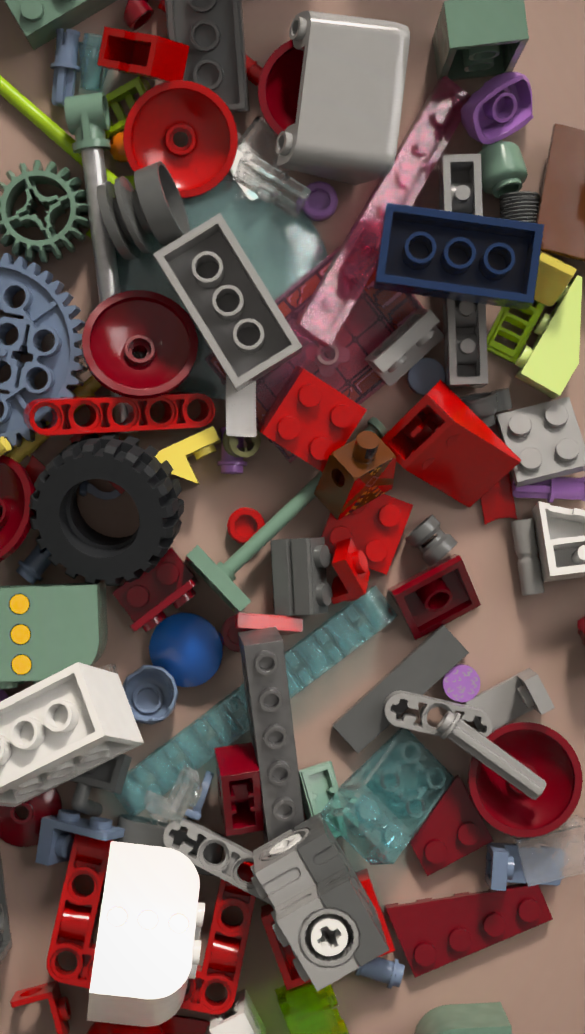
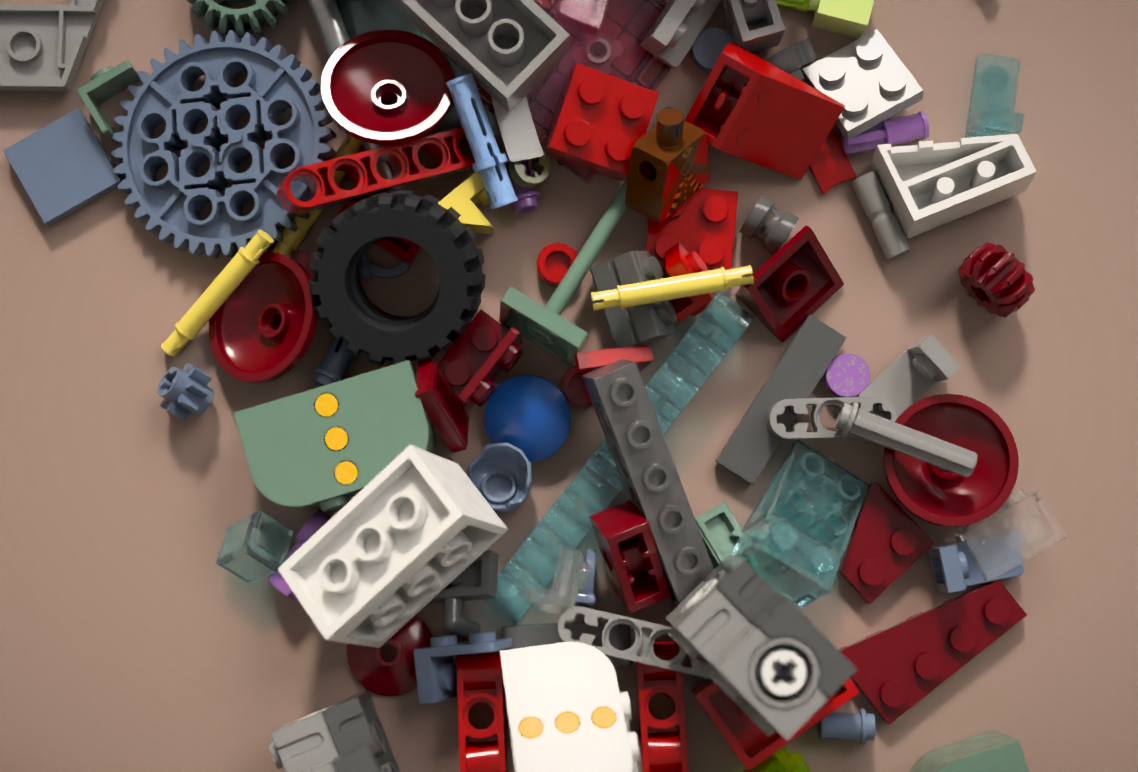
camera: 15 degrees left, 5 degrees down
(115, 623) = (442, 406): none -> dark red tile
(207, 413) = (478, 131): none -> light blue pin
(332, 580) = (672, 288): none -> light yellow piece

